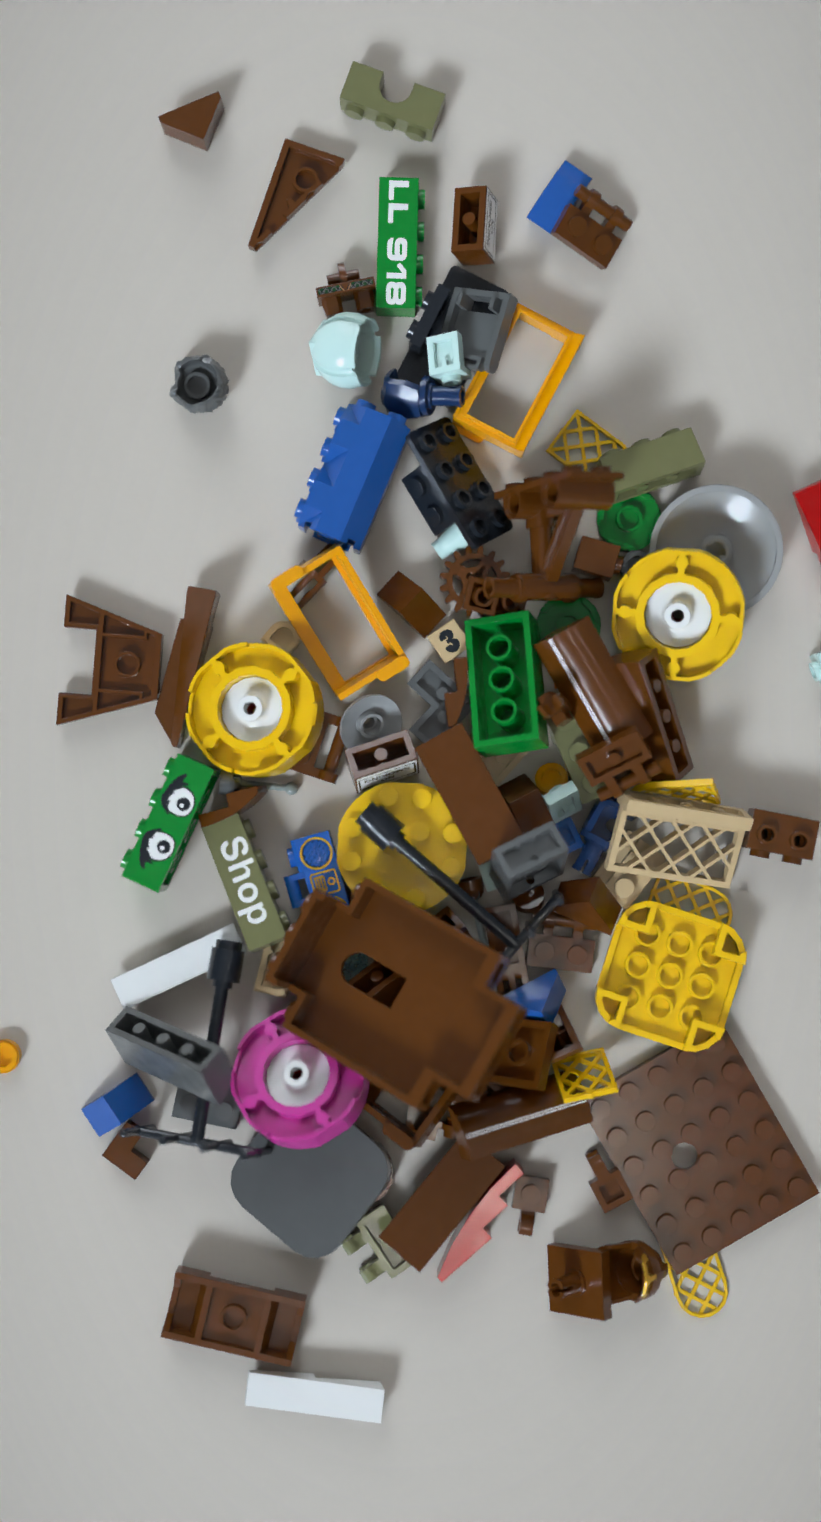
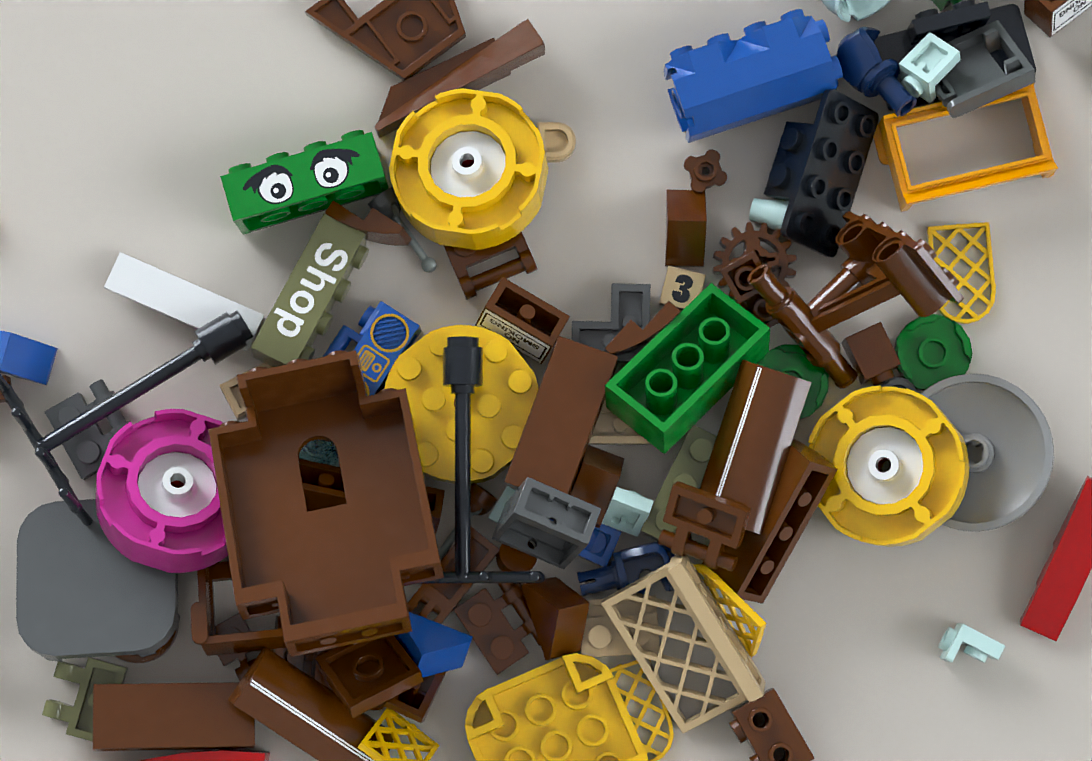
camera: 50 degrees right, 5 degrees down
(171, 1054) = (99, 358): dark grey brick -> none
(317, 576) = (631, 117): reddish brown arm -> none
(378, 564) = (699, 180): none -> reddish brown plate
(382, 669) = (603, 250): light orange piece -> none
(383, 715) = (568, 283): light grey dish -> none
(550, 776) = (641, 481): light orange tile -> none
(555, 707) = (704, 426): reddish brown plate -> none
(655, 463) = (998, 329): olive brick -> none

